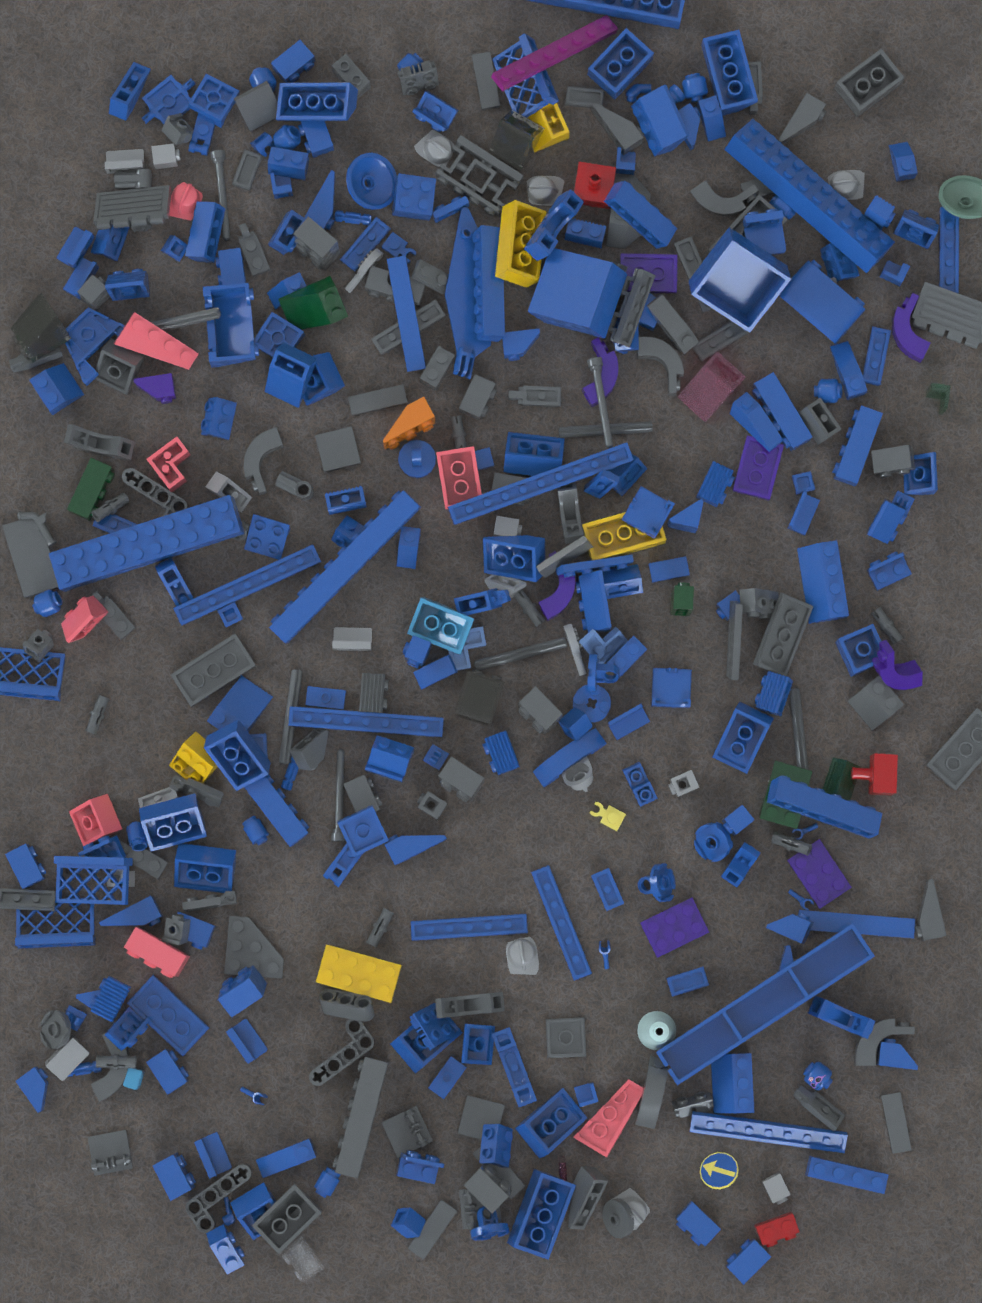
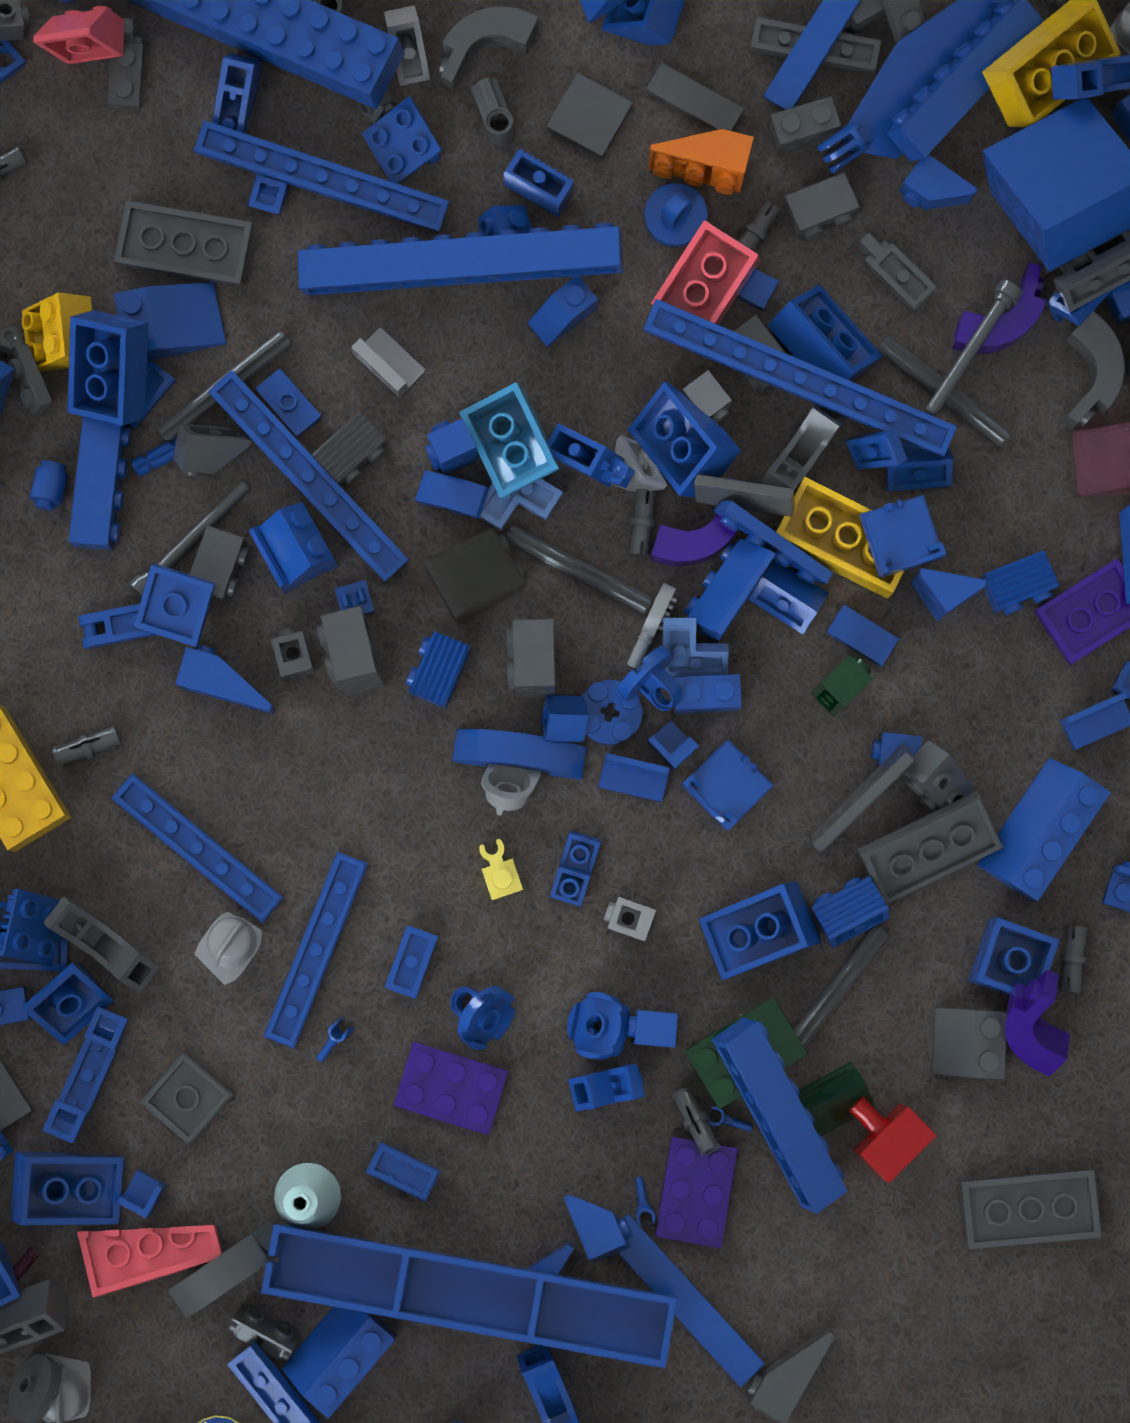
camera: 40 degrees right, 0 degrees up
(632, 692) = (672, 745): none -> blue panel

